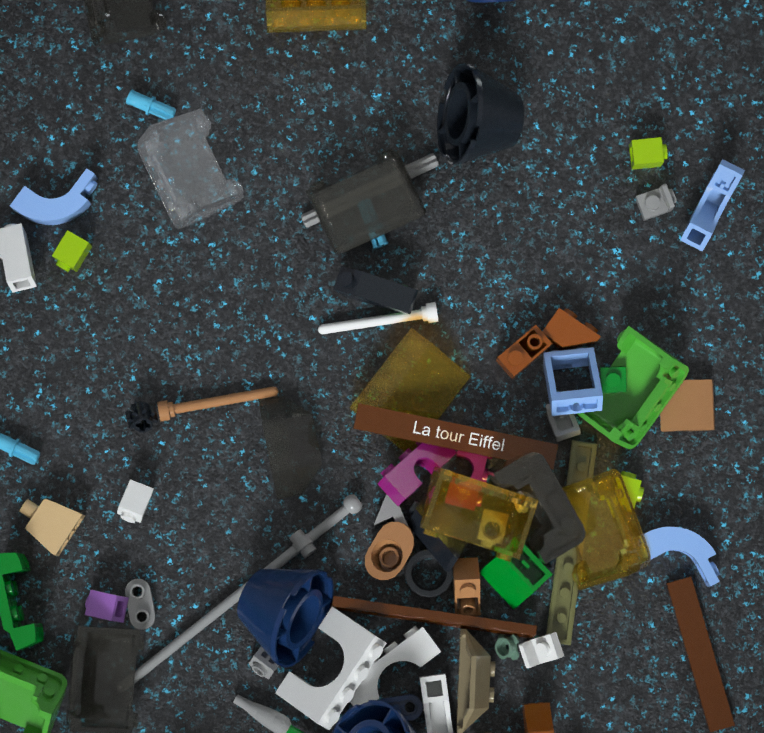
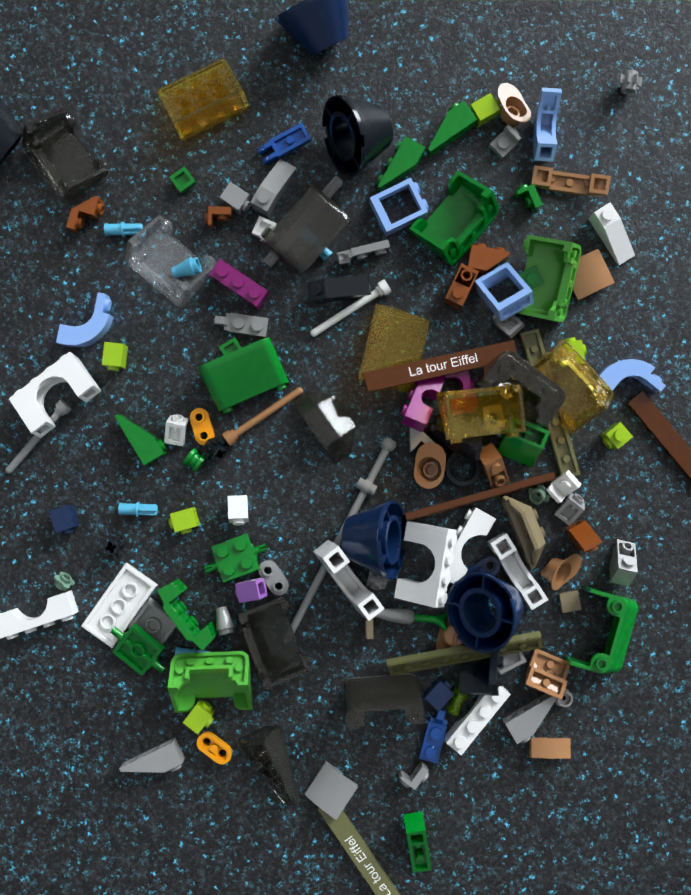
camera: 25 degrees left, 5 degrees up
(51, 523) = (187, 550): tan torso -> none
(56, 631) = (224, 623): none -> light grey cone
(59, 373) = (145, 444): none -> green slope
(64, 486) = (184, 520): none -> lime brick
(103, 372) = (175, 430): none -> white bracket
(105, 559) = (235, 558): none -> green plate
(110, 419) = (194, 460): none -> green wheel
(124, 65) = (91, 208): none -> dark orange slope
(138, 382) = (204, 425): none -> light orange plate
(206, 185) = (187, 268): none -> medium azure cone
(214, 306) = (230, 346): none -> green plate
(215, 343) = (243, 374): none -> green windscreen
(222, 619) = (337, 566): none -> white arch
(228, 717) = (369, 629): none -> dark tan tile
(243, 282) = (243, 324): none -> light grey hinge
(247, 78) = (182, 180): none -> green plate
(259, 232) = (240, 284): none -> magenta arch
(274, 137) = (216, 212): none -> dark orange bracket
(301, 128) = (235, 198): none -> light grey brick
(318, 173) = (261, 224): none -> white plate
(351, 134) = (272, 188): none -> light grey slope
(390, 88) = (285, 143): none -> blue hinge
(423, 258) = (362, 251): none -> light grey hinge
(492, 245) = (381, 215): none -> light blue window
(522, 173) = (404, 162): none -> green slope
(539, 681) = (570, 508): none -> light grey bracket
(555, 270) = (457, 219): none -> green windscreen
(602, 155) = (456, 123): none -> green slope
(632, 617) = (615, 436): none -> lime brick
(657, 284) = (531, 198): none -> green bracket
(682, 163) = (513, 107): none -> medium nougat piece
(712, 285) = (570, 183): none -> medium nougat slope
(737, 369) = (612, 233): none -> white slope

